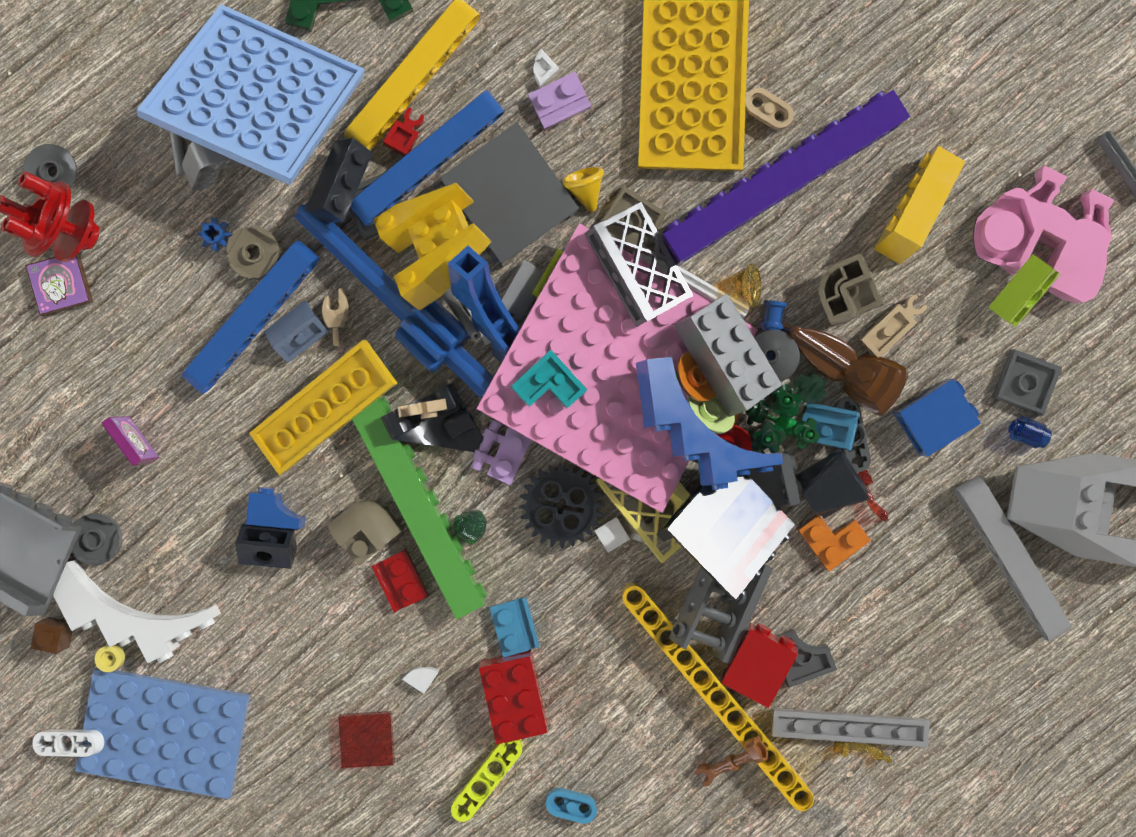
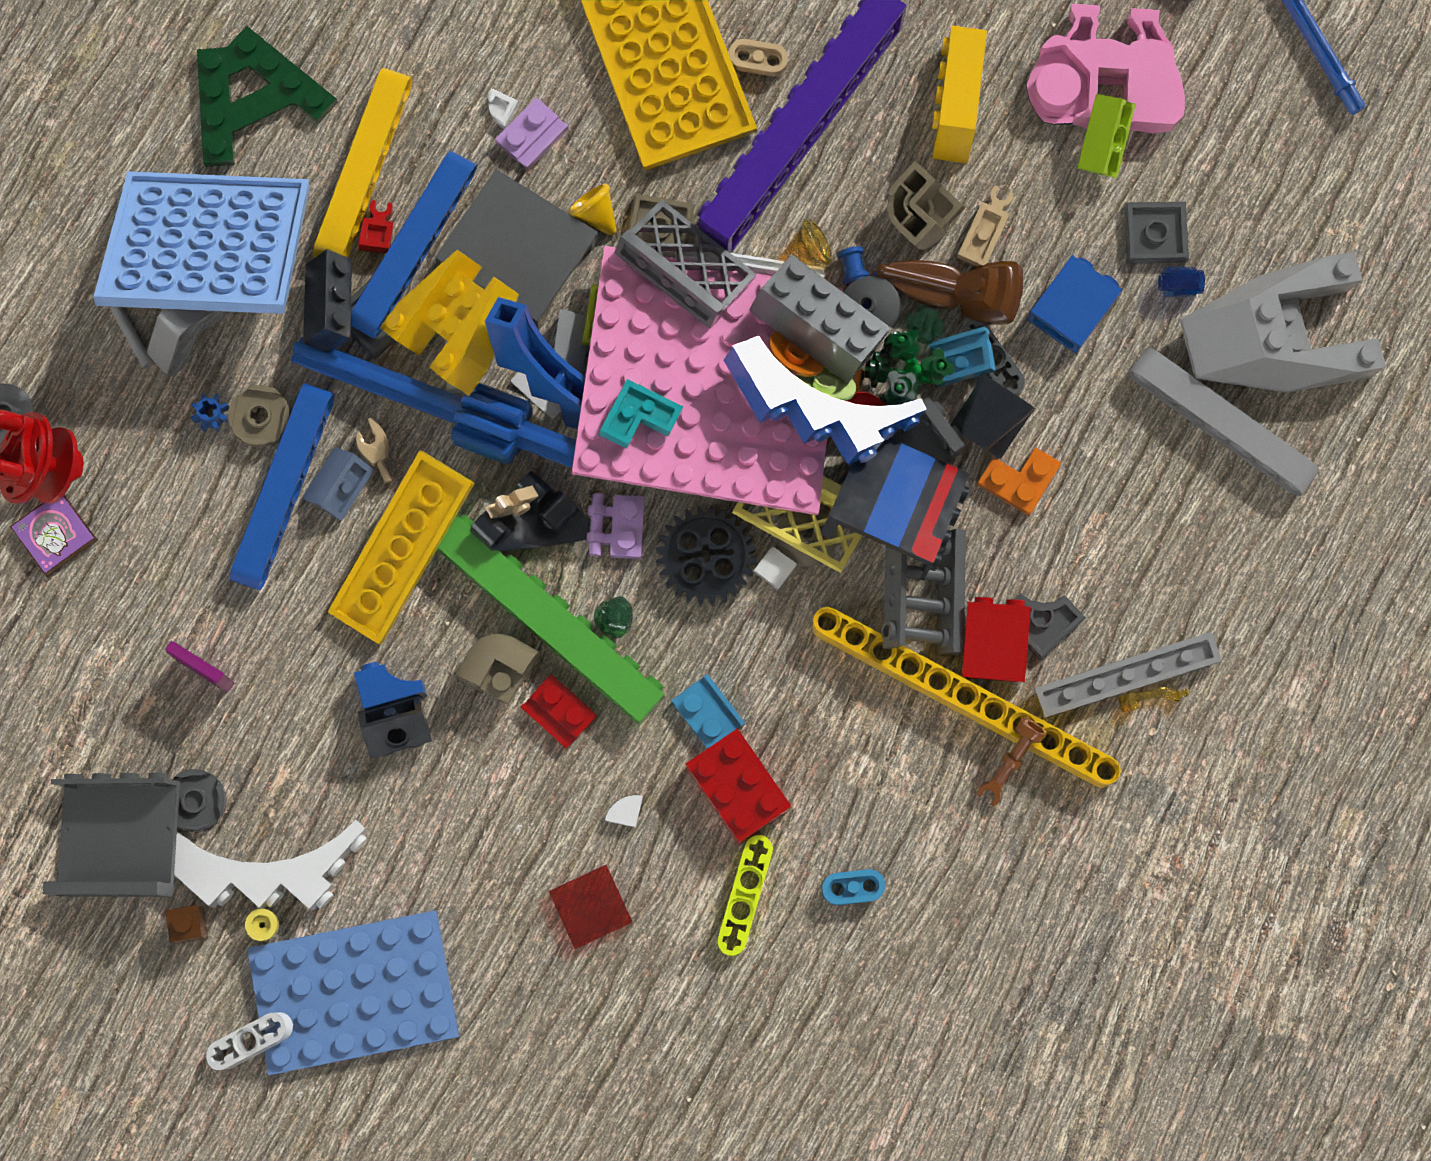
camera: 25 degrees left, 10 degrees down
(461, 315) = (512, 388): dark grey piece -> none
(875, 508) = (1055, 427): clear red piece -> none

